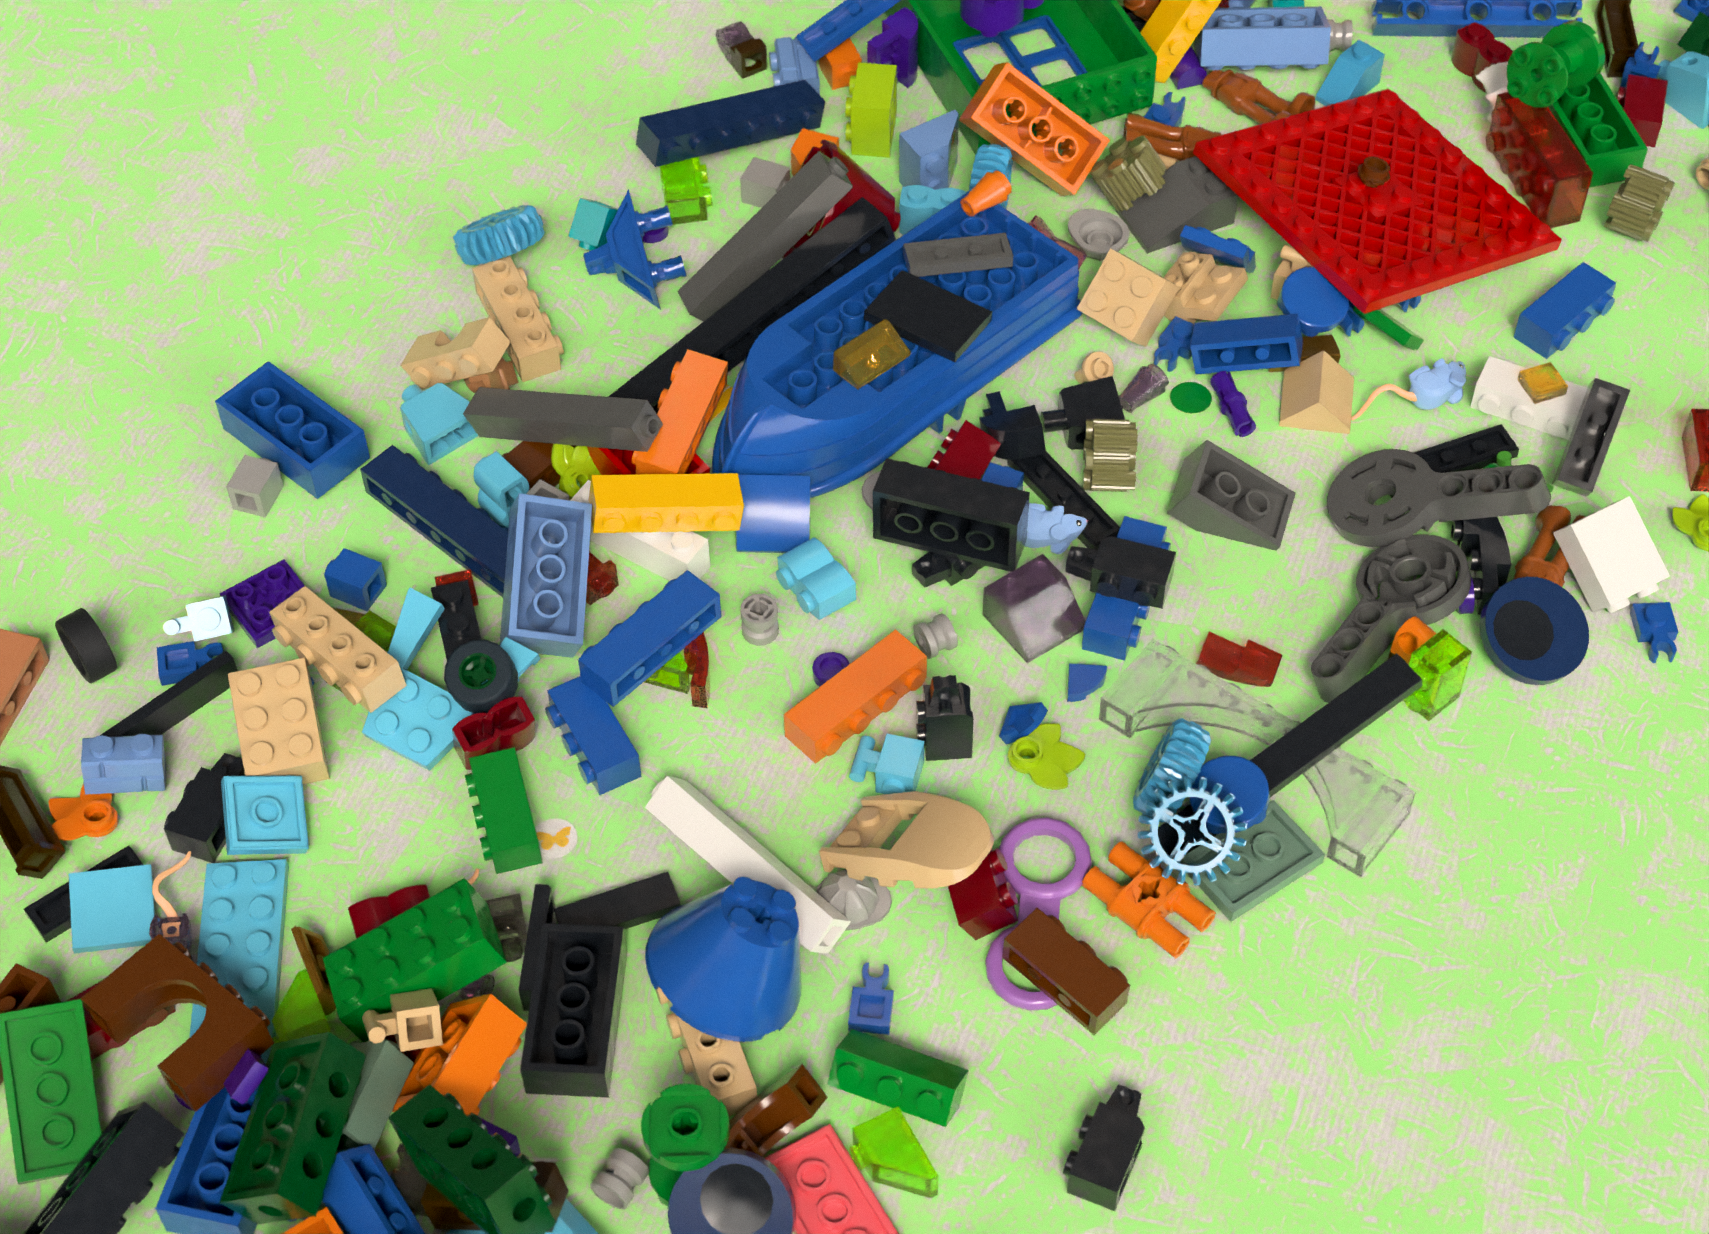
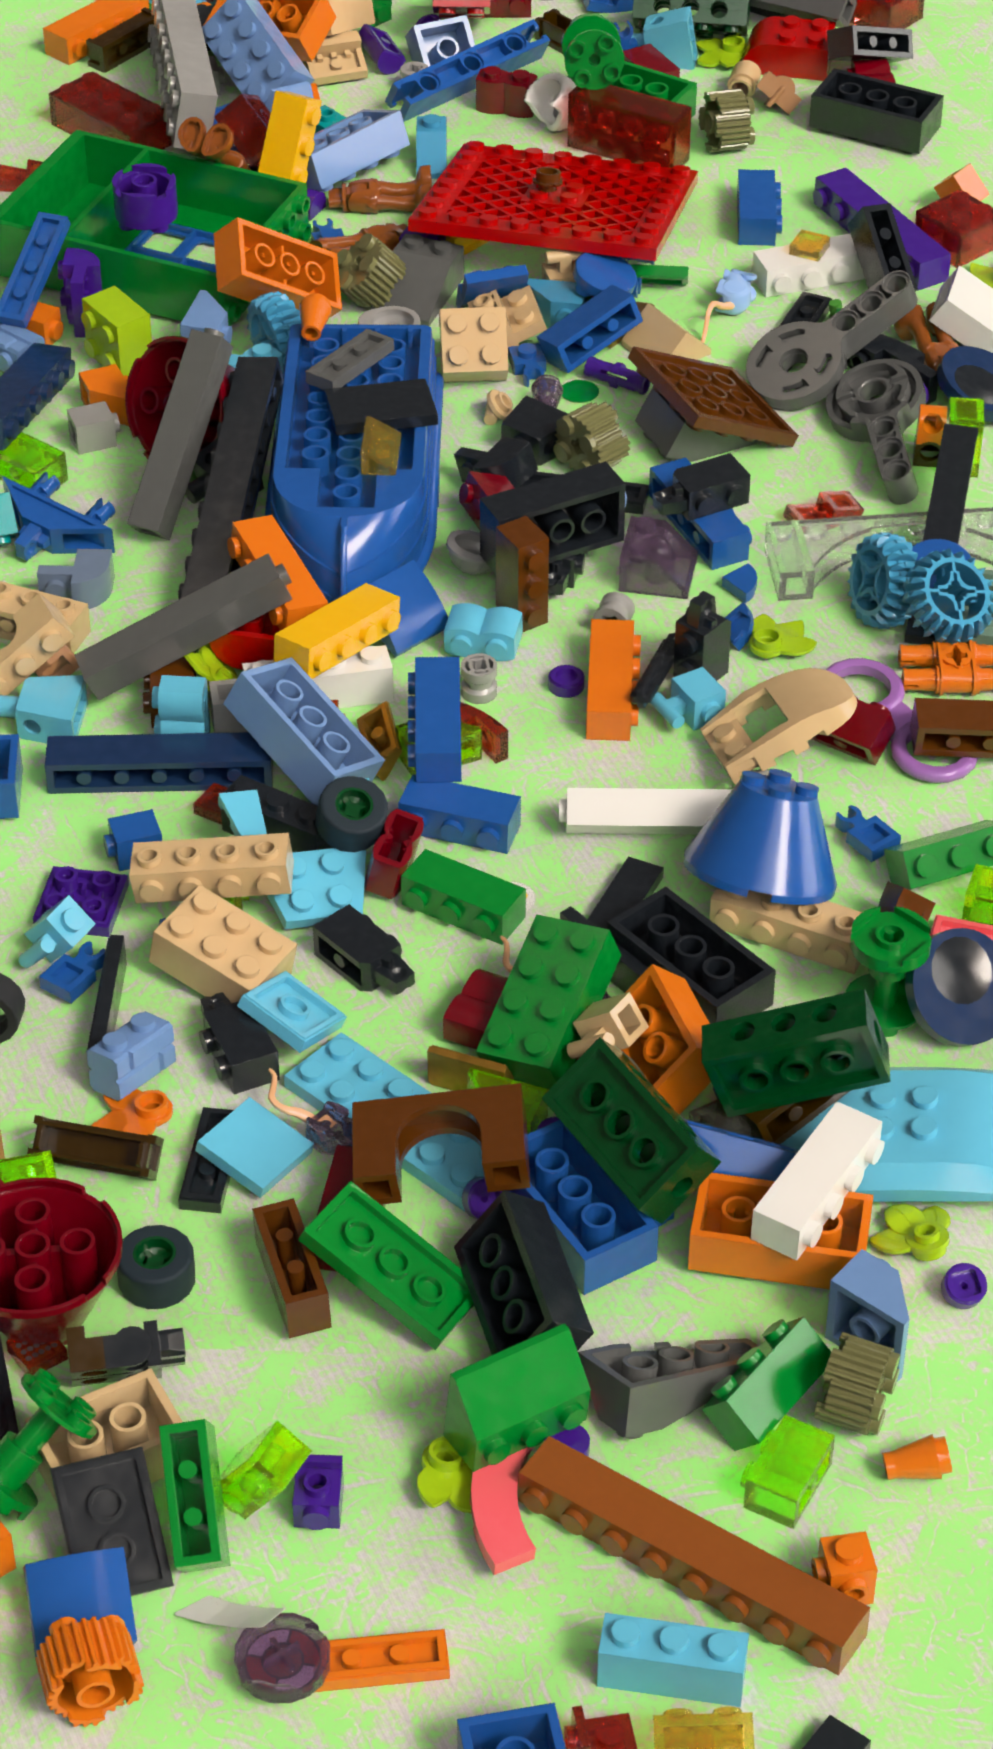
camera: 45 degrees left, 10 degrees down
(246, 1076) = (547, 1131): dark purple tile -> none
(380, 801) = (361, 952): none -> black hinge
(598, 324) = (86, 581): none -> sand blue brick
(617, 612) = (381, 732): none -> pearl gold slope
(872, 722) = (654, 673): none -> black axle
(877, 549) = (523, 570): none -> reddish brown brick
(1259, 483) = (712, 397): none -> reddish brown plate
(1262, 291) = (555, 298): none -> dark azure slope
(1654, 405) = (844, 194): none -> dark purple brick

